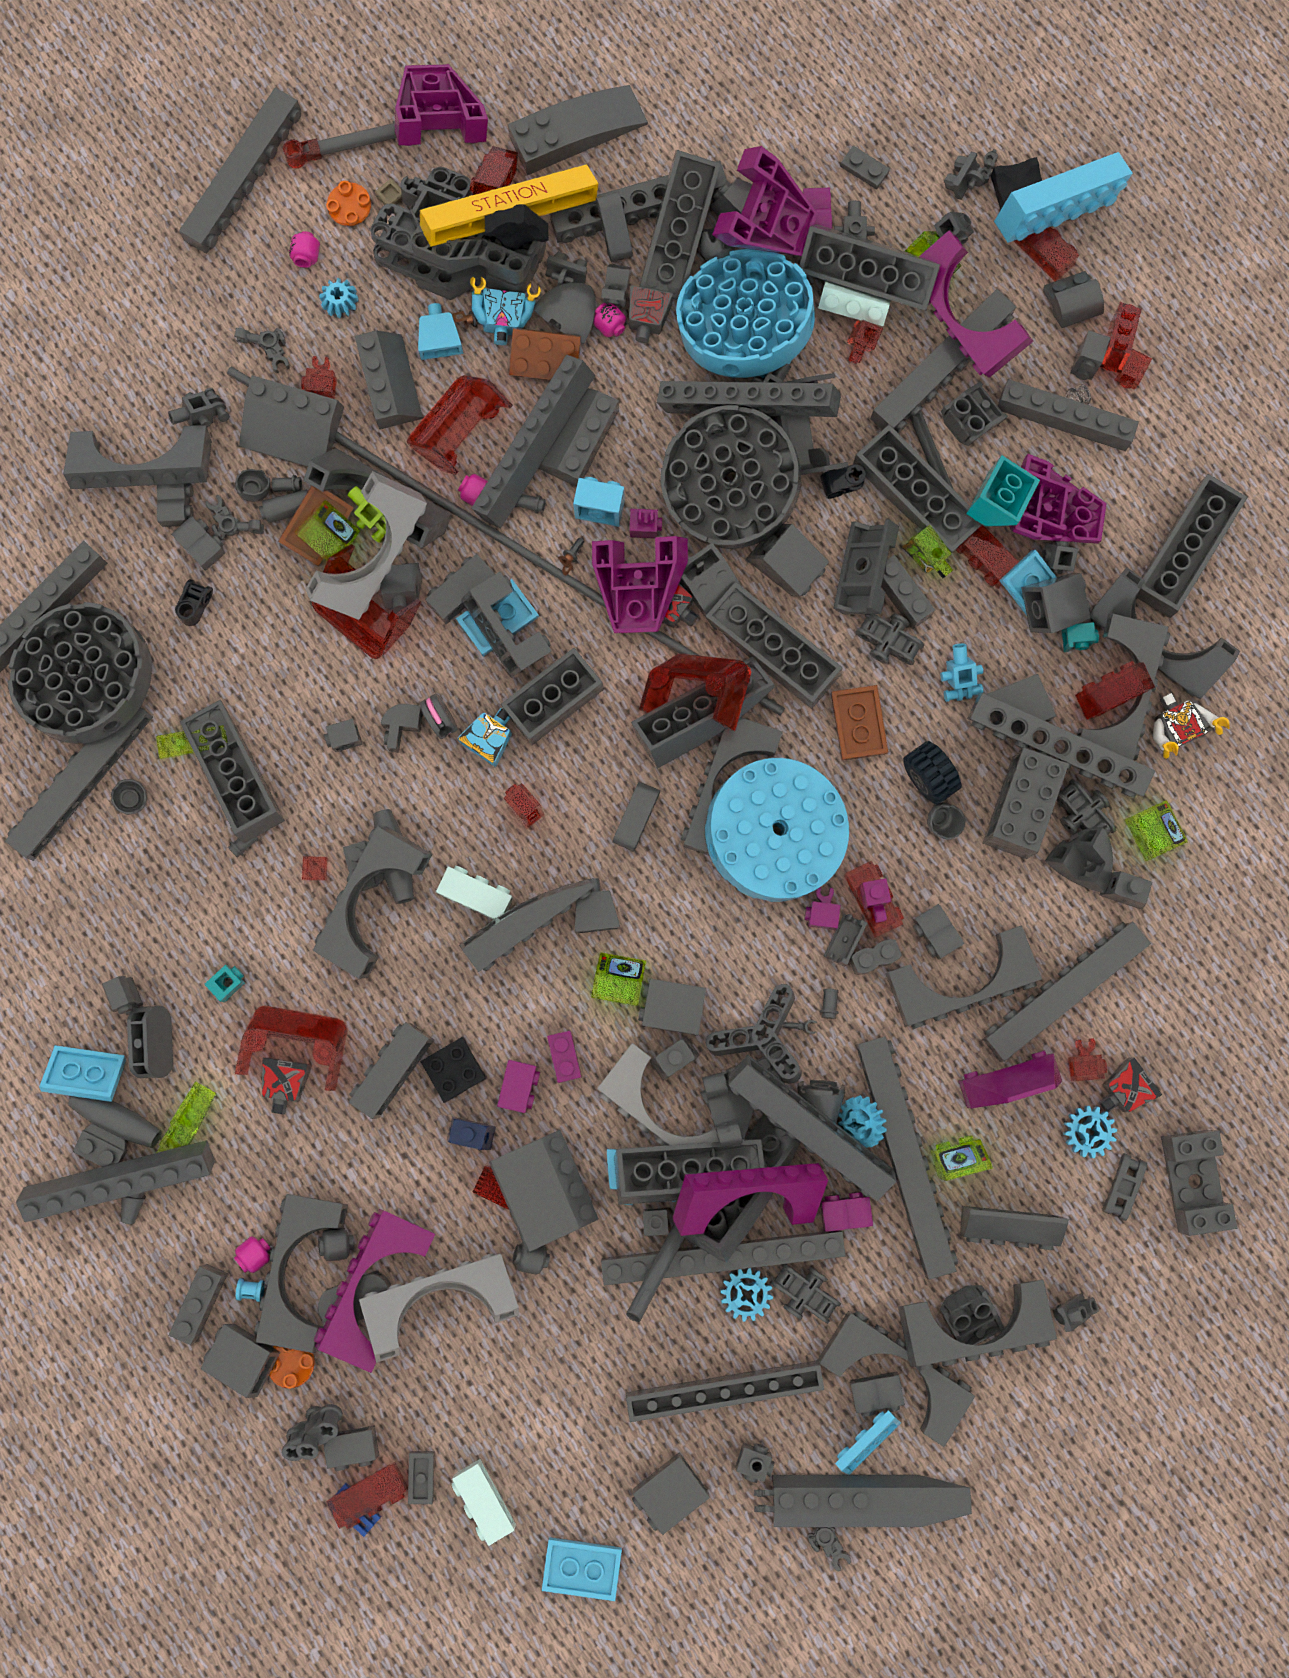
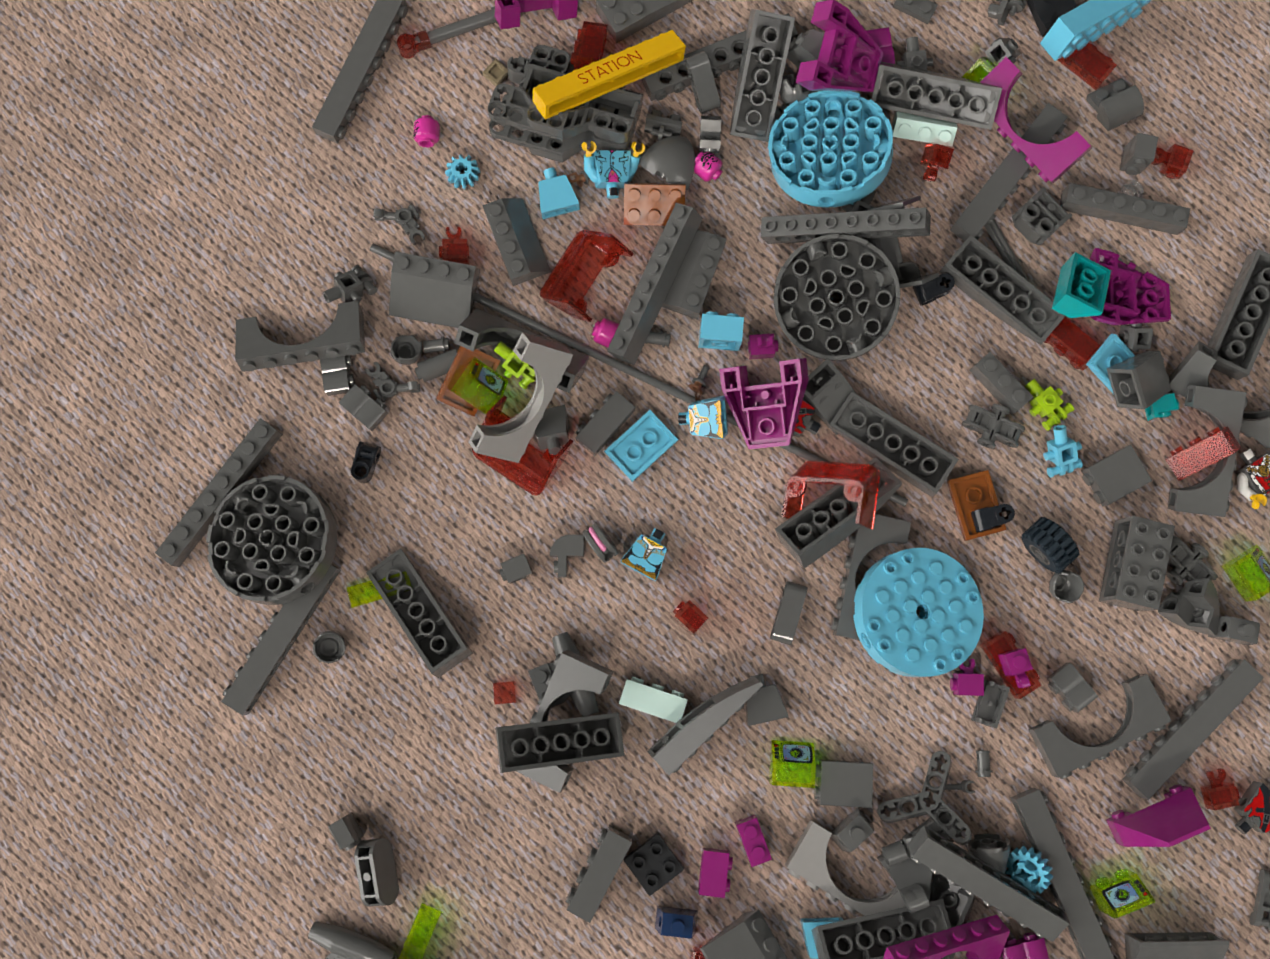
camera: 10 degrees left, 0 degrees up
(82, 1073) = (318, 907): medium azure plate -> none
(217, 983) = (430, 811): teal brick -> none
(238, 847) = (433, 682): dark grey pin -> none
(283, 1082) = (501, 893): torso -> none
(324, 1032) = (507, 841): clear red windscreen -> none
(348, 203) = (460, 85): orange dish -> none
(363, 922) = (559, 742): none -> dark grey slope
(479, 605) = (662, 480): dark grey plate -> none
(516, 226) = (620, 93): black brick -> none
(553, 696) = (701, 512): dark grey slope -> none
(572, 594) = (706, 418): none -> medium azure torso
(648, 311) = (740, 154): dark grey torso -> none
(789, 560) = (895, 366): dark grey slope -> none
(861, 589) = (966, 386): dark grey piece -> none
(868, 736) = (989, 517): none -> black piece
(870, 958) = (1022, 714): dark grey brick -> none
(929, 551) = (1018, 344): clear neon green torso -> none
(951, 618) = (1046, 403): none -> lime piece
(1087, 1140) = (1240, 858): medium azure gear -> none
(1122, 336) = (1165, 126): clear red brick -> none
(1139, 775) = (1234, 528): dark grey brick -> none

